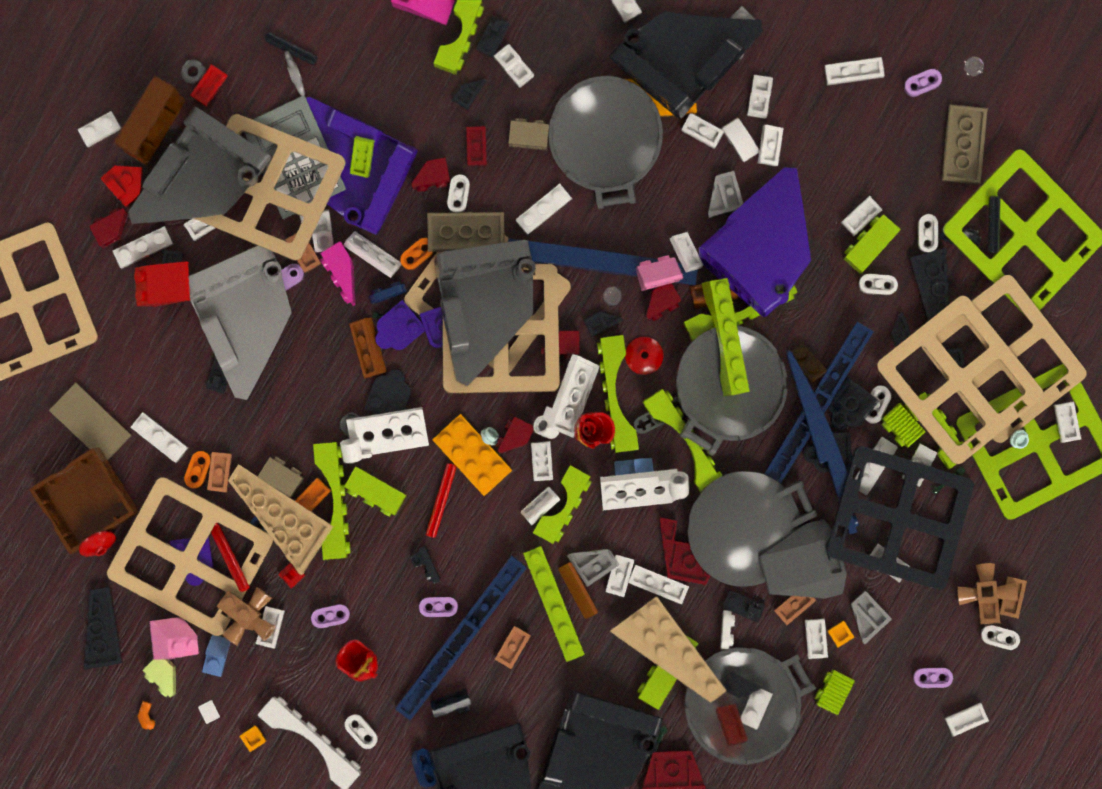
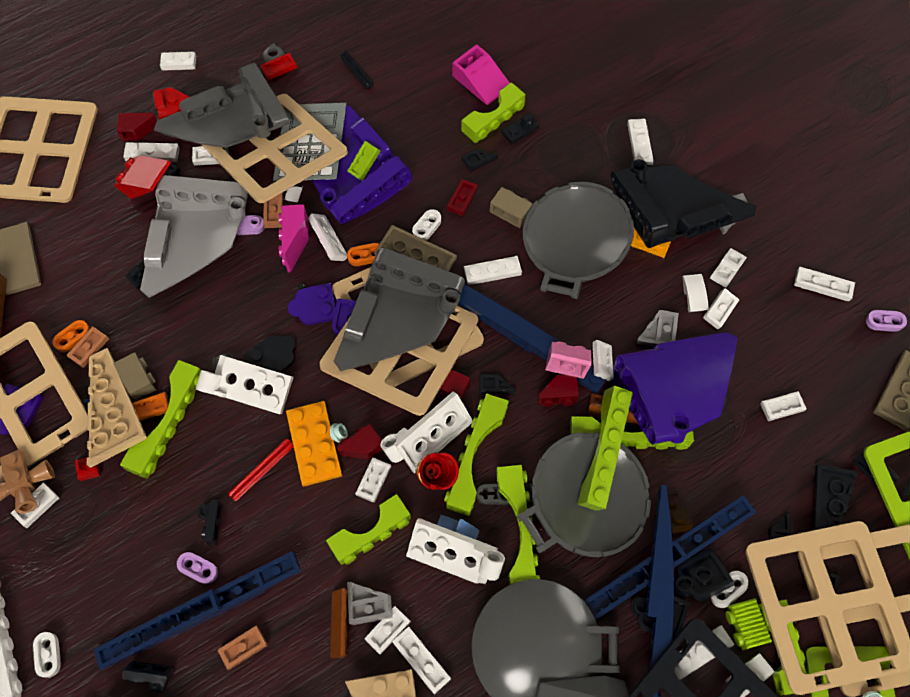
camera: 30 degrees right, 20 degrees down
(150, 121) = (211, 54): reddish brown tile -> none
(159, 437) = (61, 297): white plate -> none
(229, 558) = (42, 422): red axle -> none
(294, 73) = (348, 85): light grey piece -> none
(323, 233) = (301, 196): white slope -> none
(330, 616) = (95, 524): lavender plate -> none
(357, 661) = (87, 580): red helmet -> none
(367, 348) = (277, 311): dark orange slope -> none
(374, 492) = (206, 430): lime brick -> none
(380, 295) = (320, 272): dark blue plate -> none
(432, 174) = (412, 200): dark red slope -> none
(514, 65) = (526, 155): white slope -> none
(540, 505) = (348, 520): white plate -> none
(553, 603) = (306, 625): lime brick -> none
(612, 296) = (515, 366): clear tile -> none
(637, 363) = (519, 442): red dish -> none
(679, 557) = (455, 643): dark red wing -> none
(702, 130) = (664, 270): white plate -> none
(871, 243) = (783, 434): lime brick -> none
(877, 284) = (775, 473): white plate -> none
(929, 234) = (842, 452): white plate -> none

